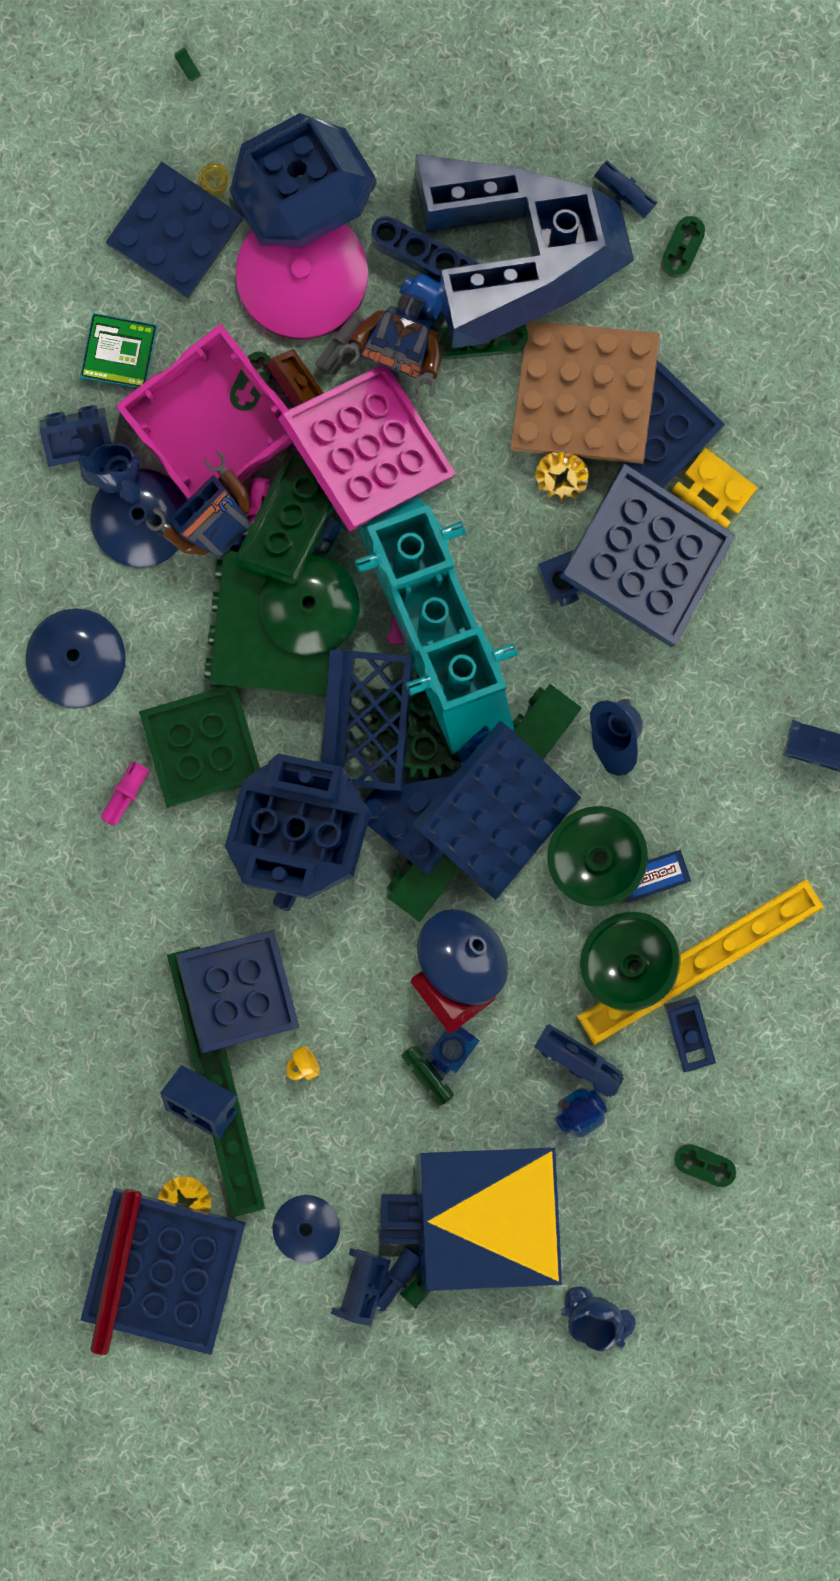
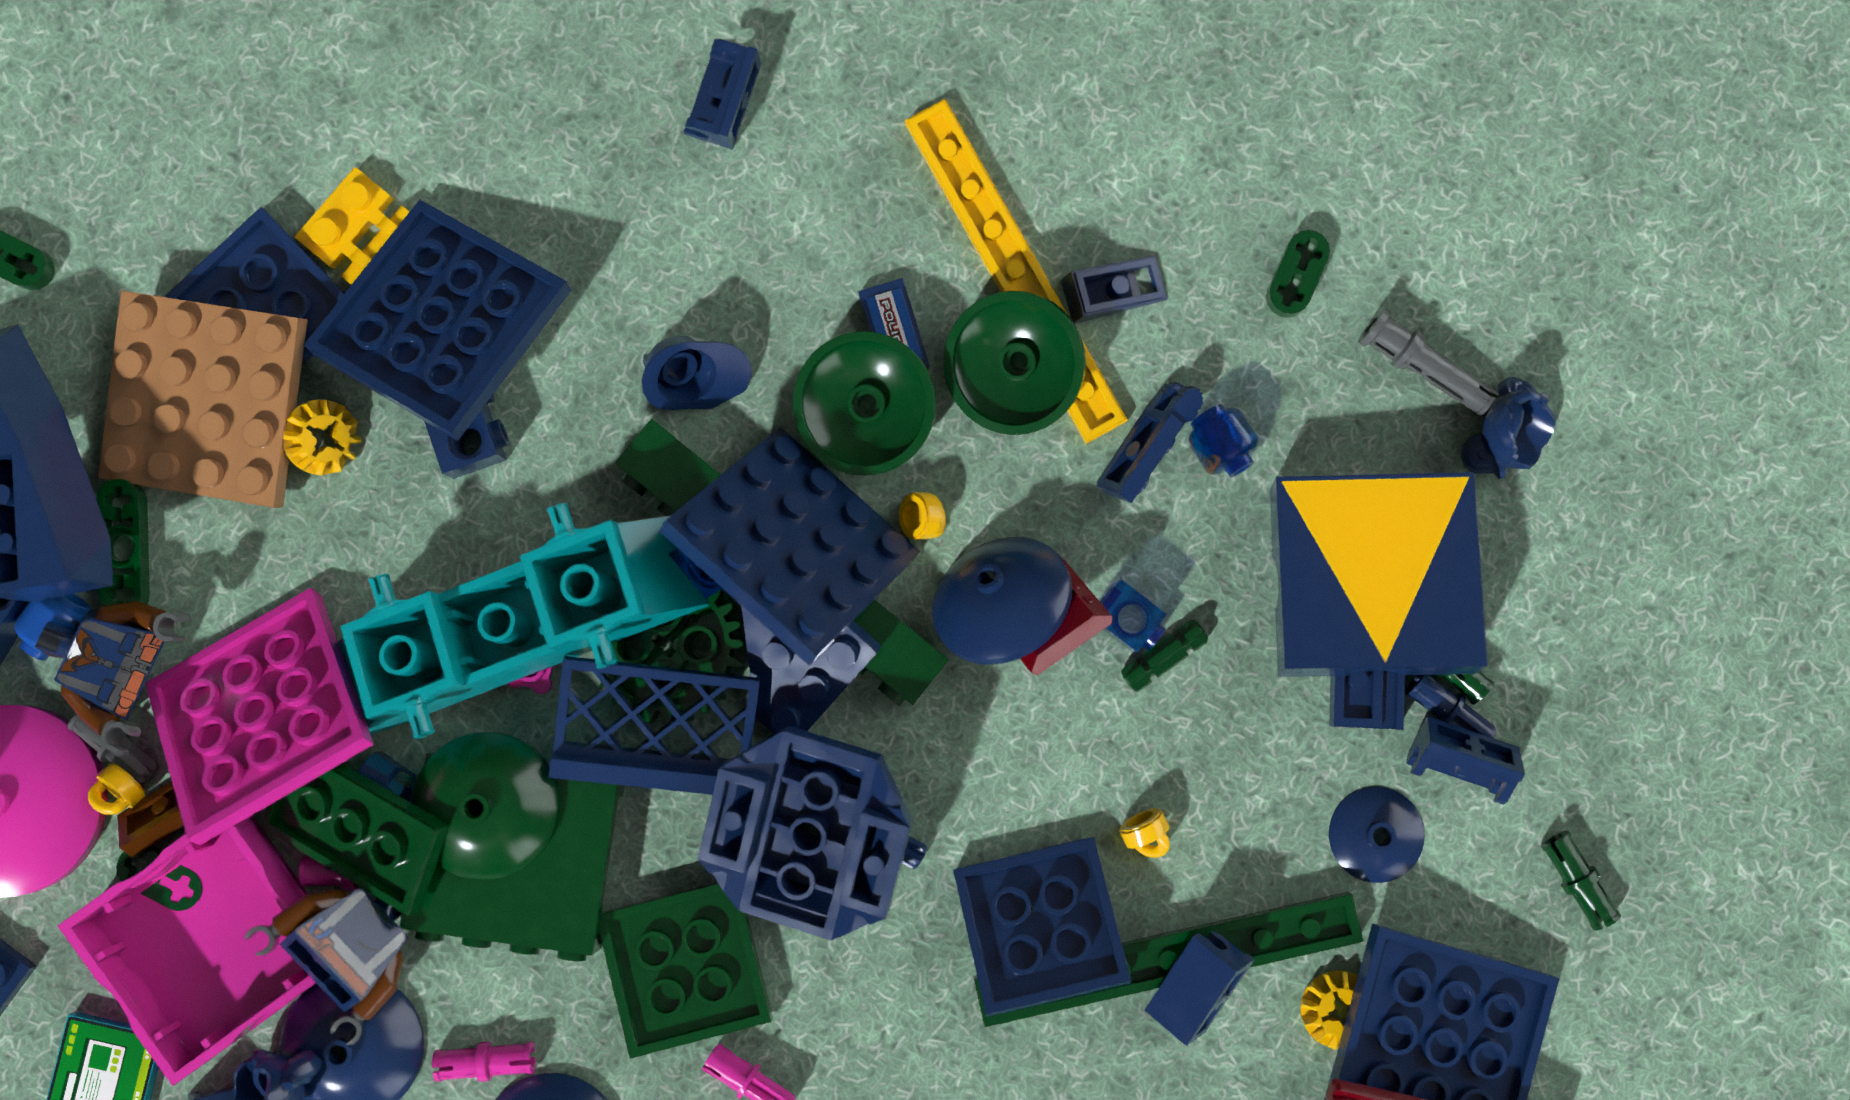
camera: 80 degrees left, 0 degrees up
(132, 610) = (483, 1061): none -> dark pink pin
(278, 1372) = (1581, 881): none -> dark green pin
(314, 351) = (120, 785): none -> yellow tile
(520, 900) = (922, 516): none -> yellow tile
(651, 1245) = (1411, 351): none -> dark grey pin

